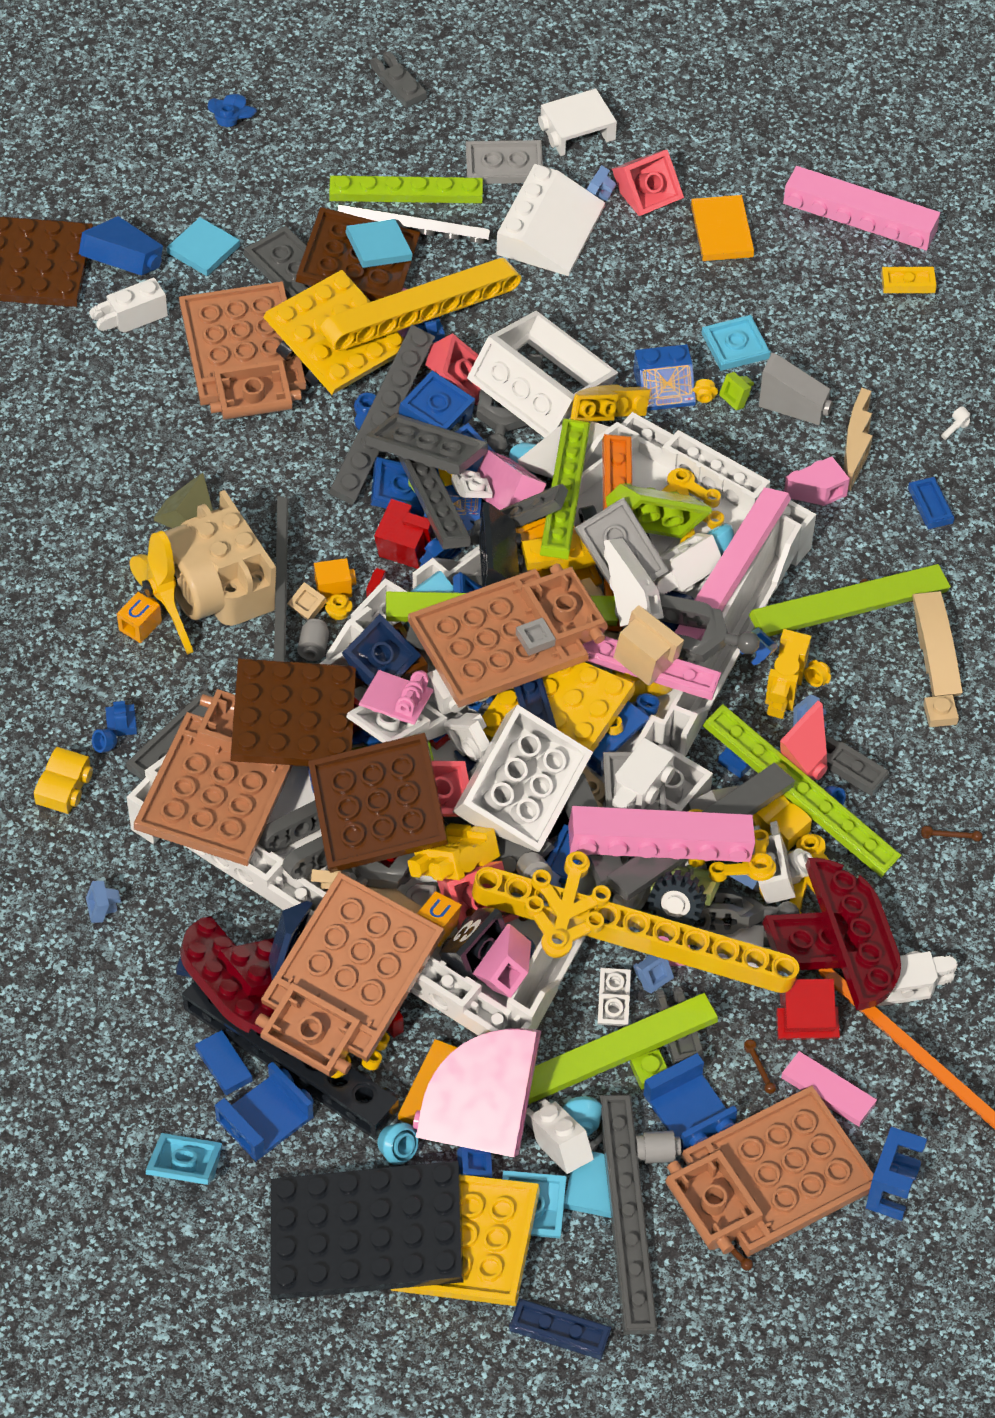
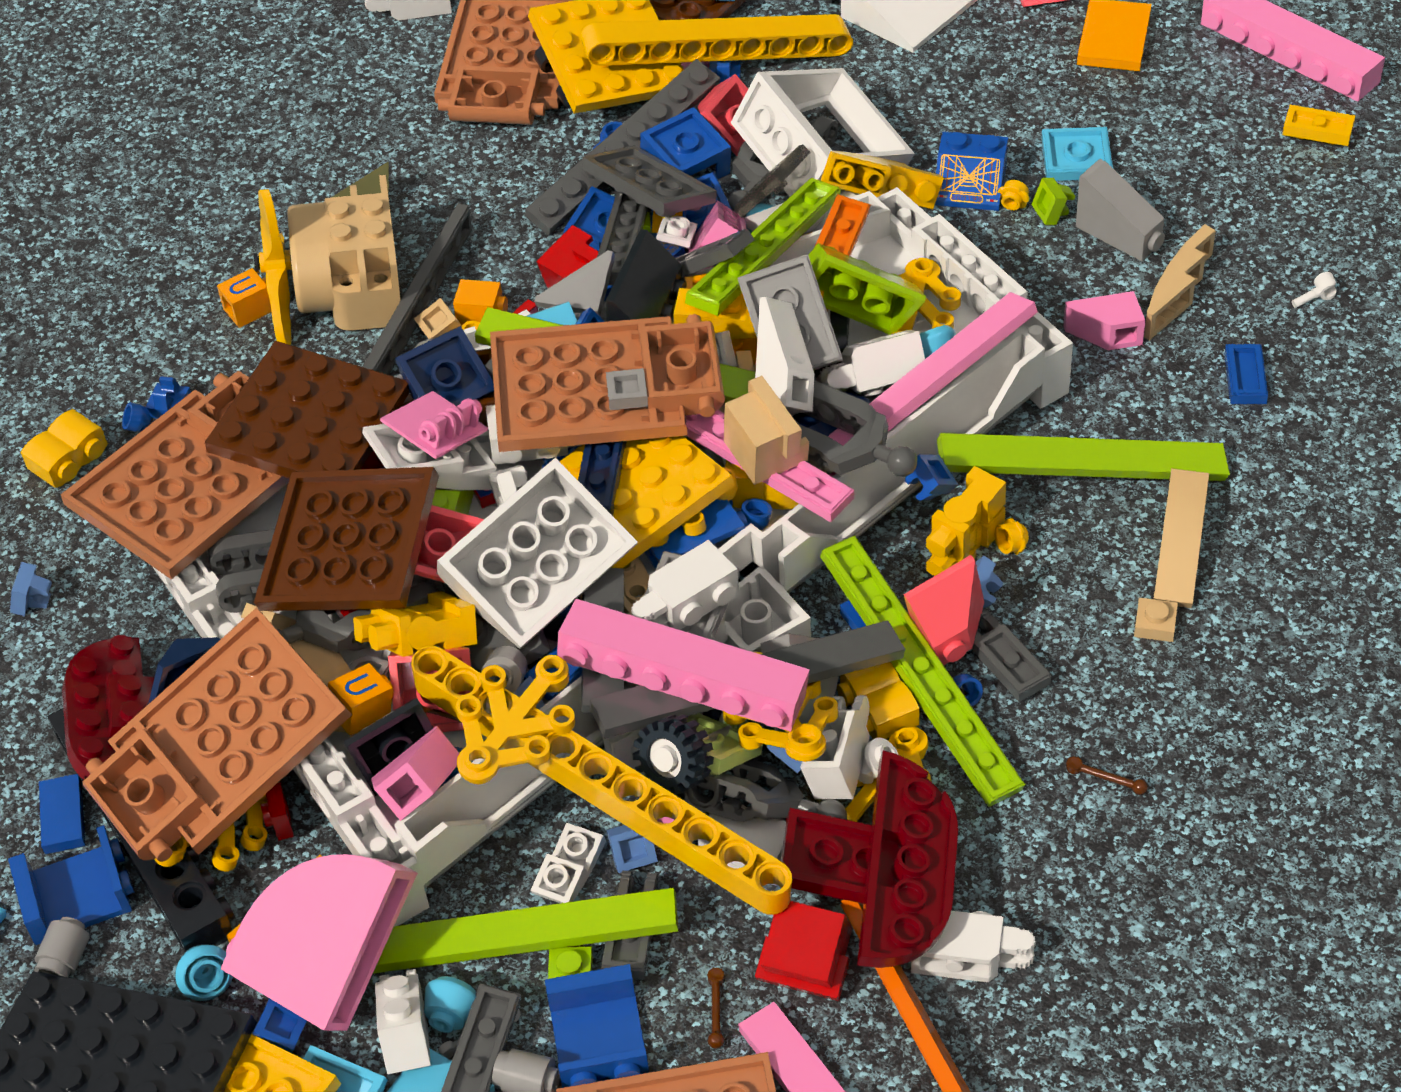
camera: 25 degrees right, 5 degrees down
(283, 1156) = (62, 947): none -> light grey brick
(442, 556) = (583, 287): none -> light grey tile
(528, 425) = (773, 181): none -> clear smoke plate

